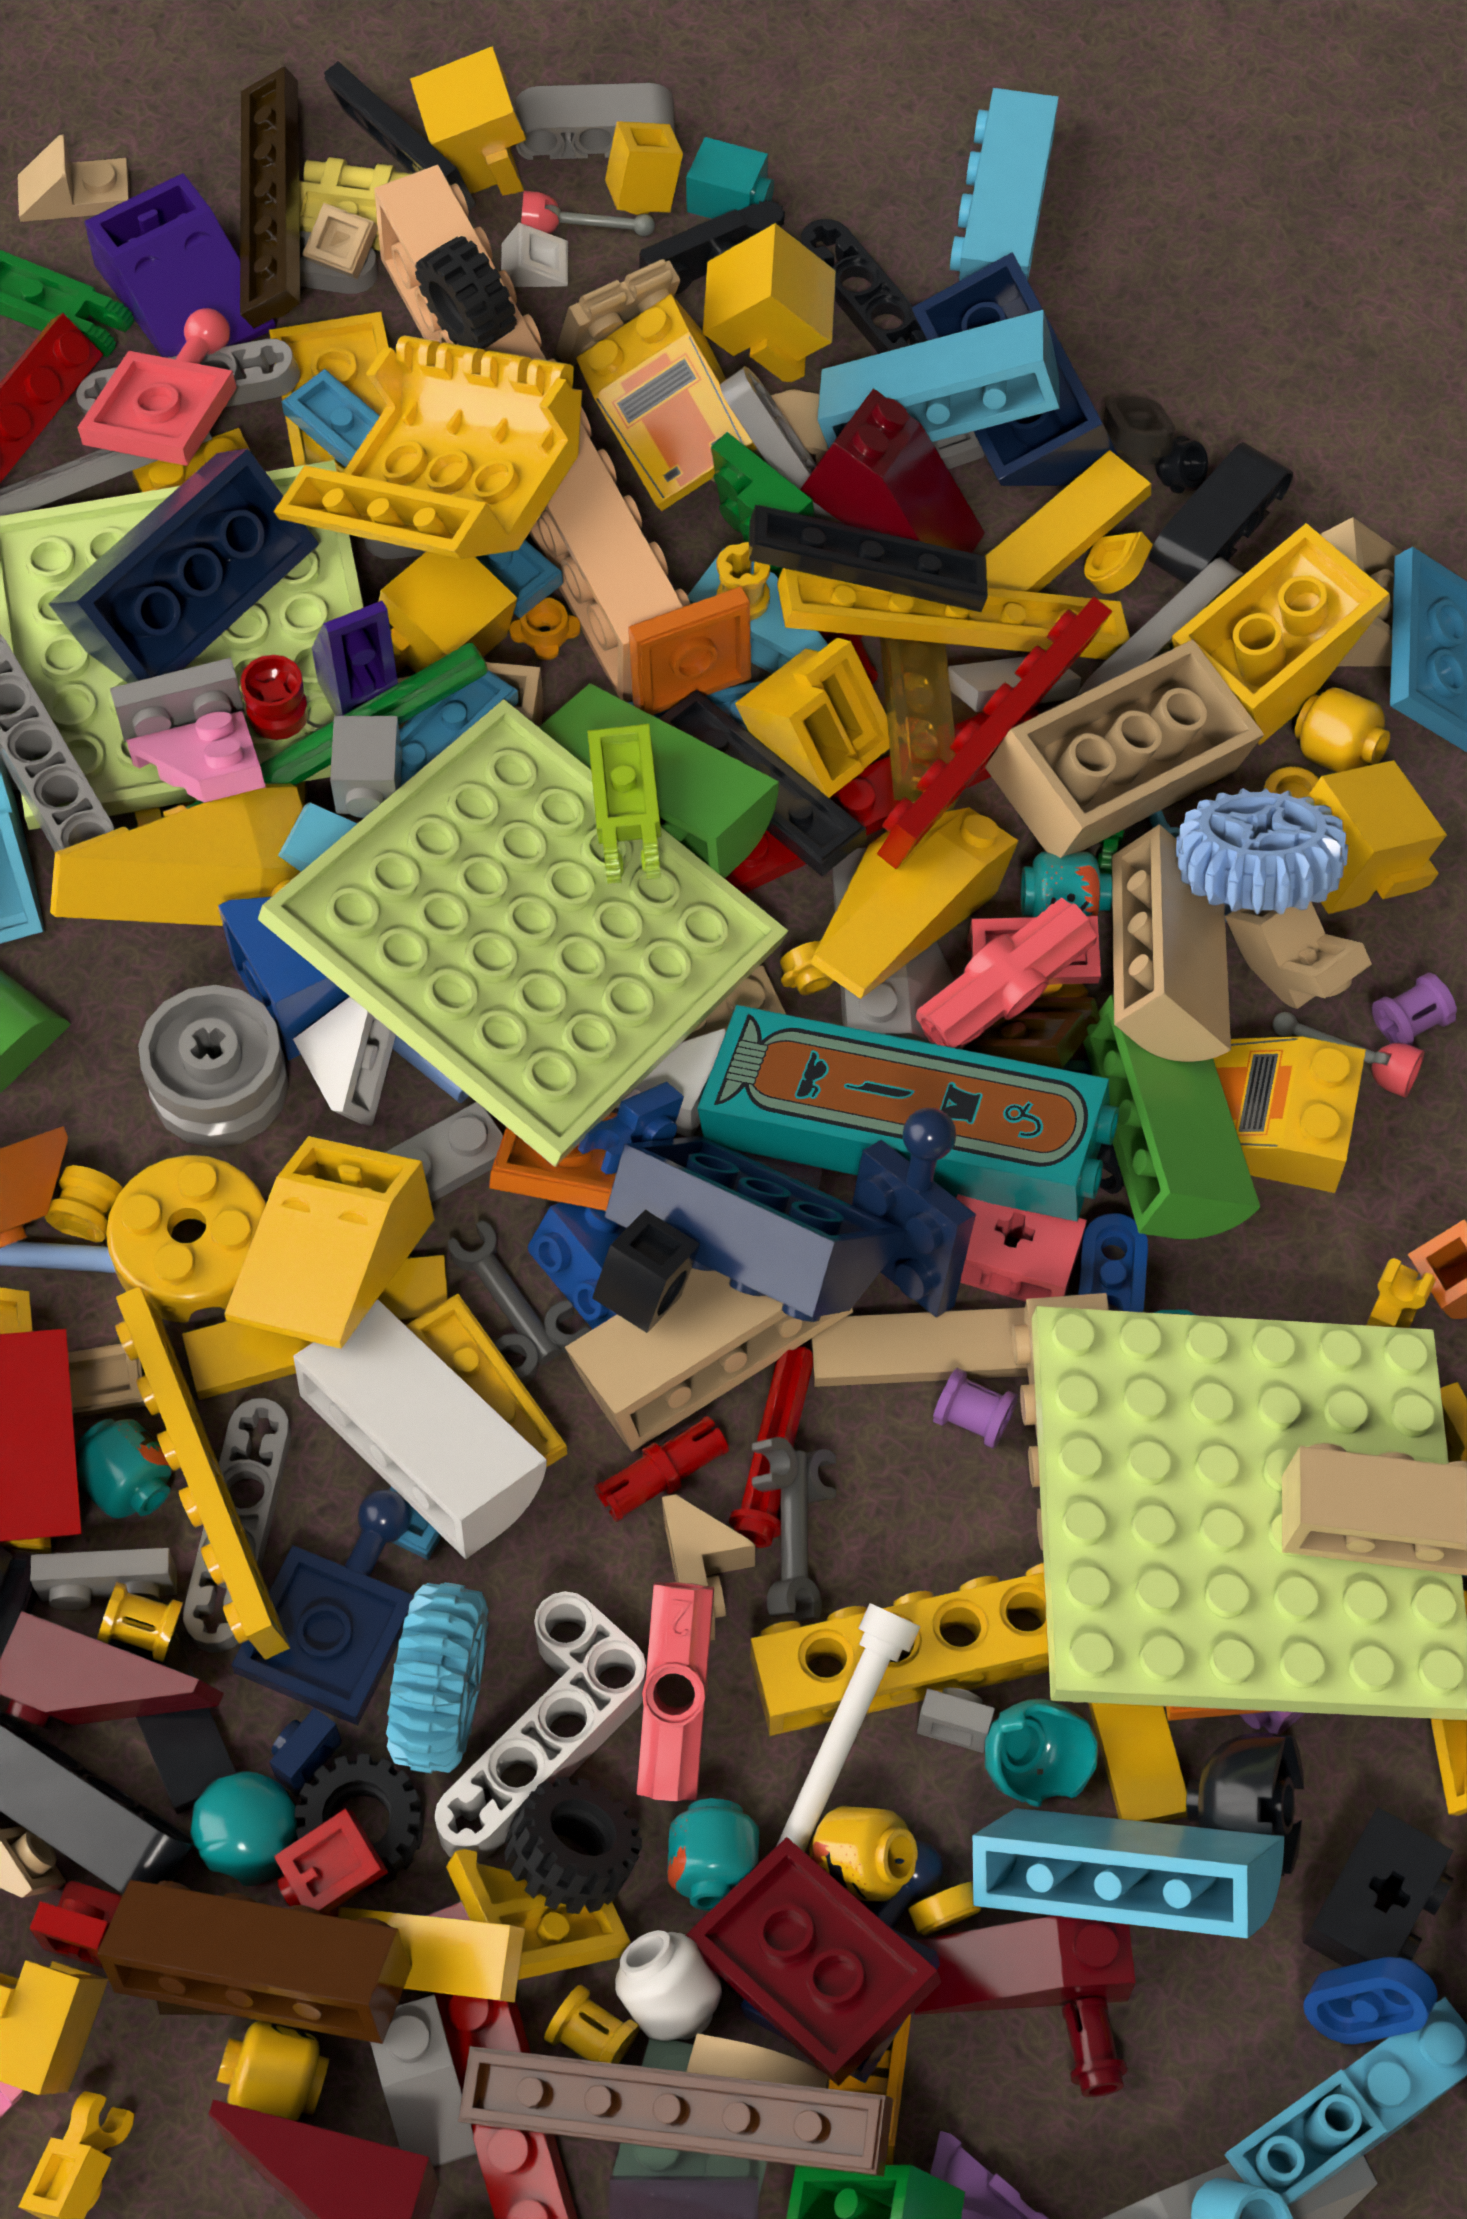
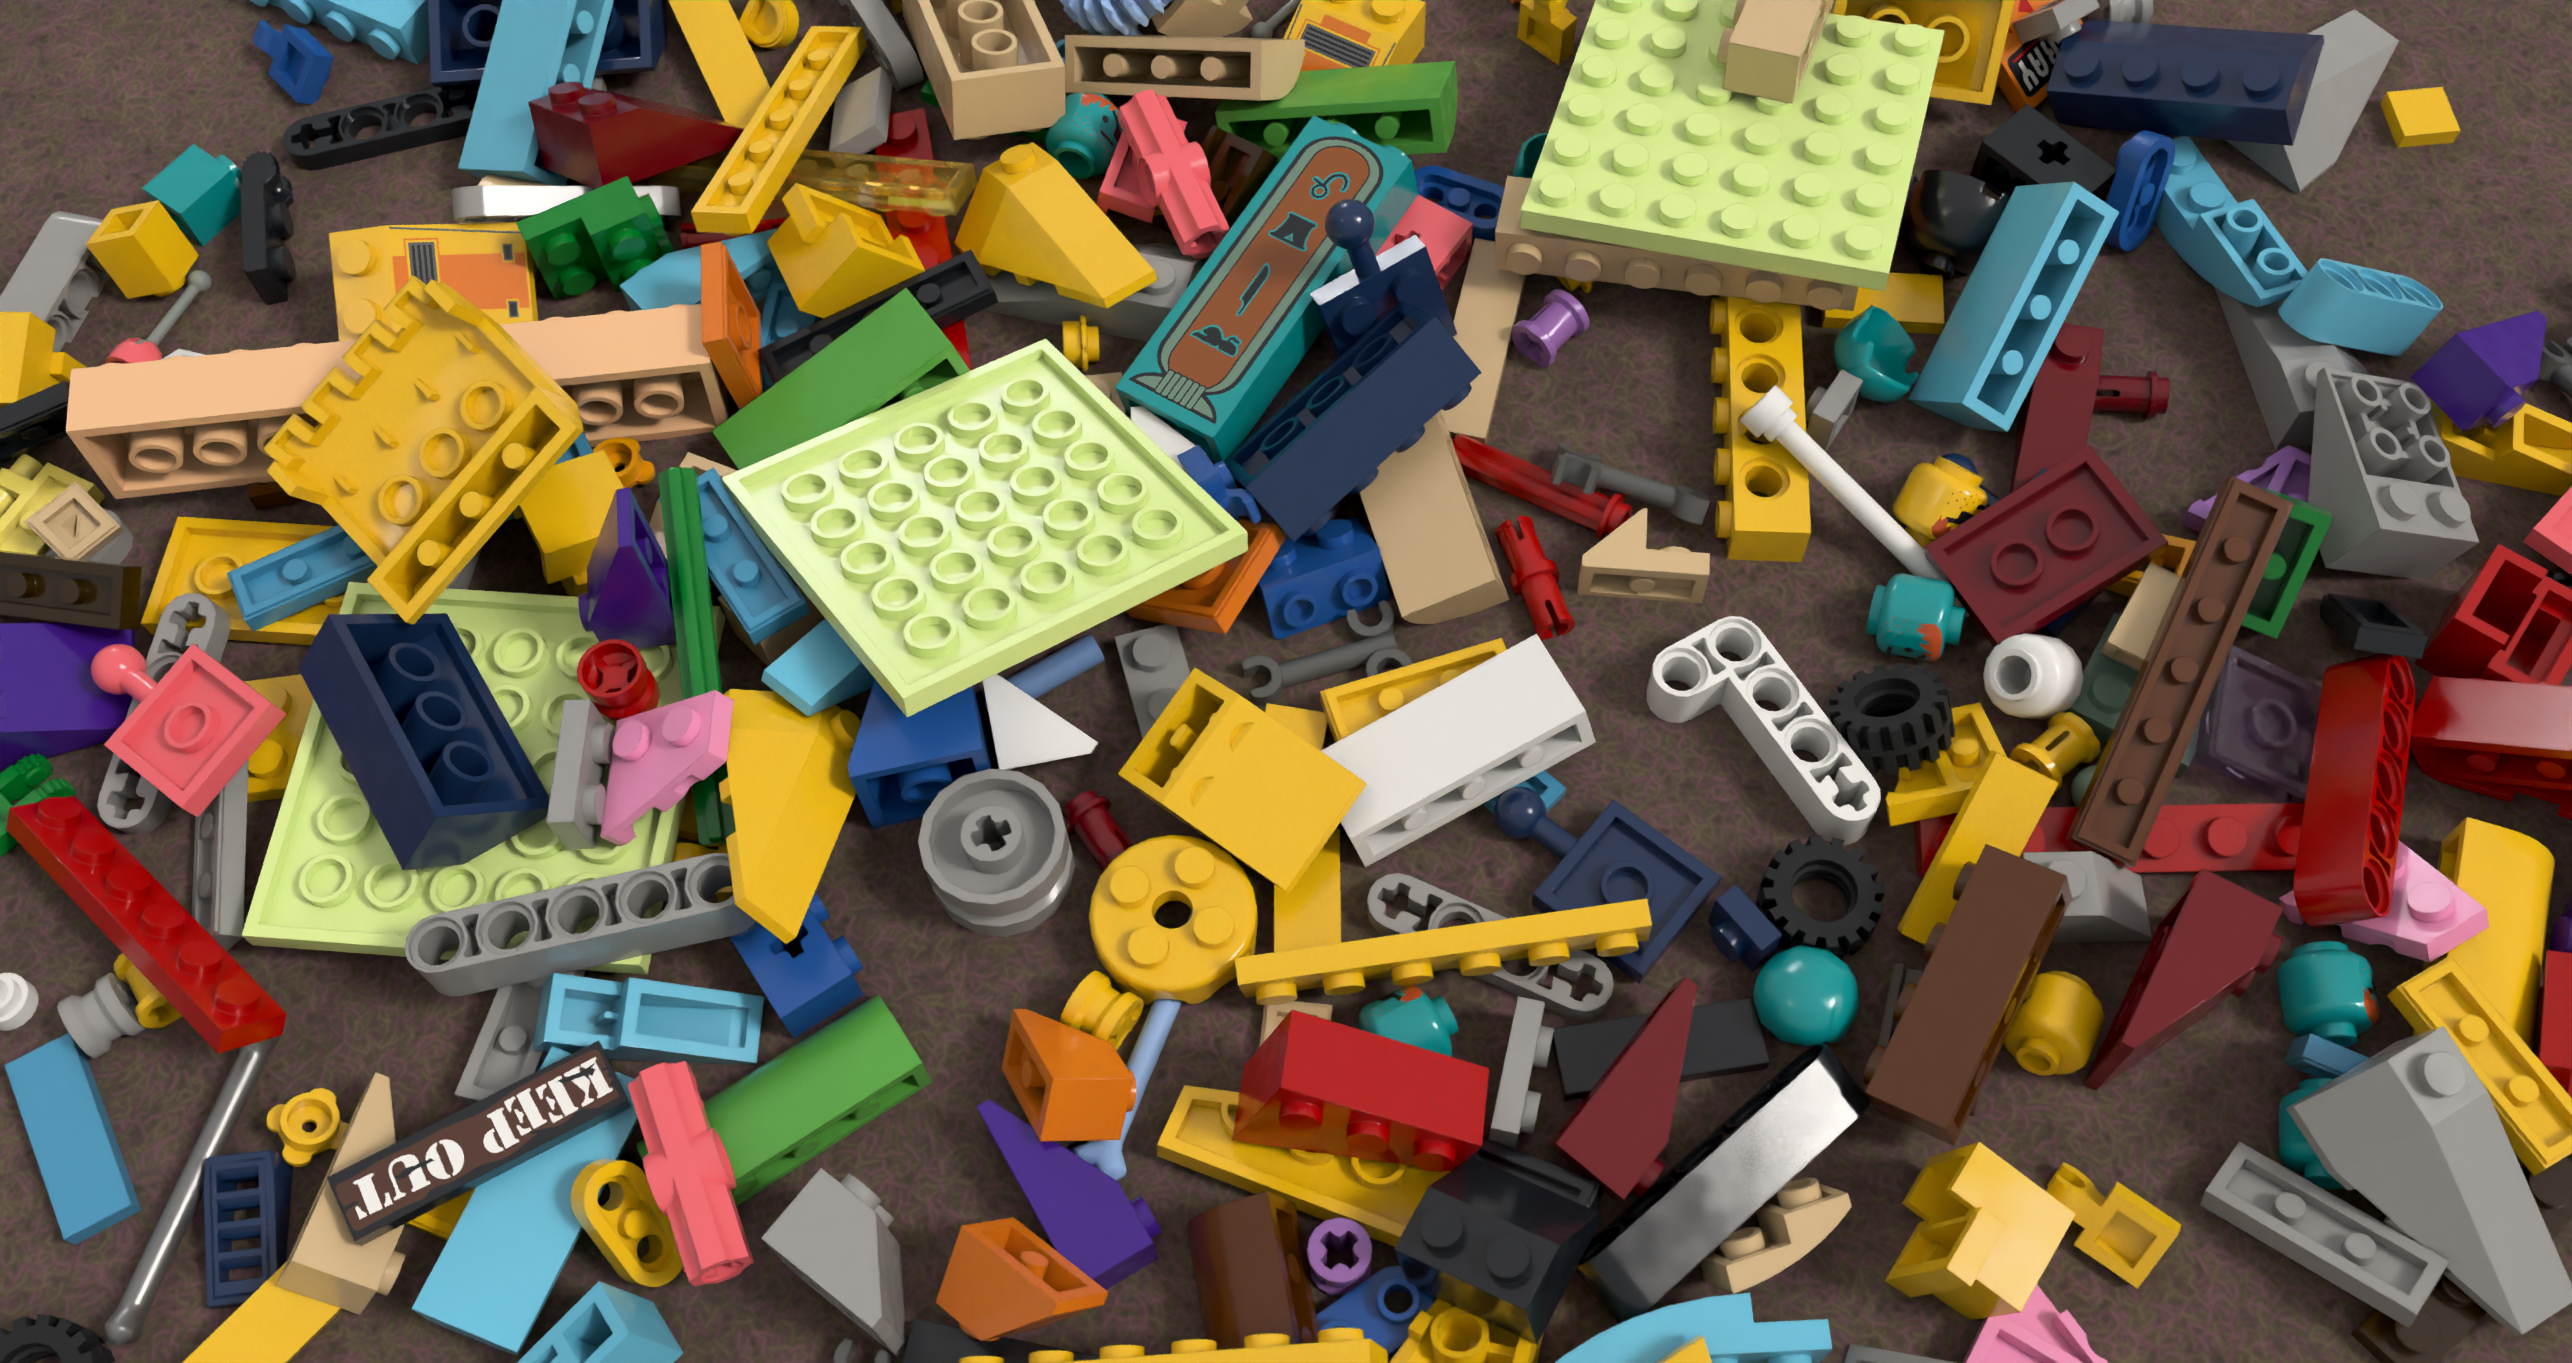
camera: 70 degrees left, 0 degrees up
(73, 955) = (807, 986): none -> blue brick
(77, 1923) = (1874, 1166): red bracket -> none
(119, 1628) = (1588, 1039): yellow bush -> none
(270, 1147) = (1098, 830): none -> dark red pin
(329, 1865) = (1882, 917): red bracket -> none
(364, 762) = (754, 599): light grey brick -> none
(437, 1677) = (1716, 783): medium azure gear -> none
(465, 294) = (262, 360): black tyre -> none
(613, 306) = (311, 294): tan plate -> none
(625, 796) = (881, 401): lime hinge -> none
(646, 1271) = (1375, 506): black brick -> none
(670, 1734) = (1772, 597): coral piece -> none
(736, 571) = (670, 270): yellow bush -> none
(772, 300) = (362, 179): yellow plate -> none
(867, 558) = (705, 156): black tile -> none
(911, 195) = (298, 60): none -> blue plate
(944, 1909) = (1995, 460): yellow tile -> none
(977, 744) = (933, 114): red plate -> none

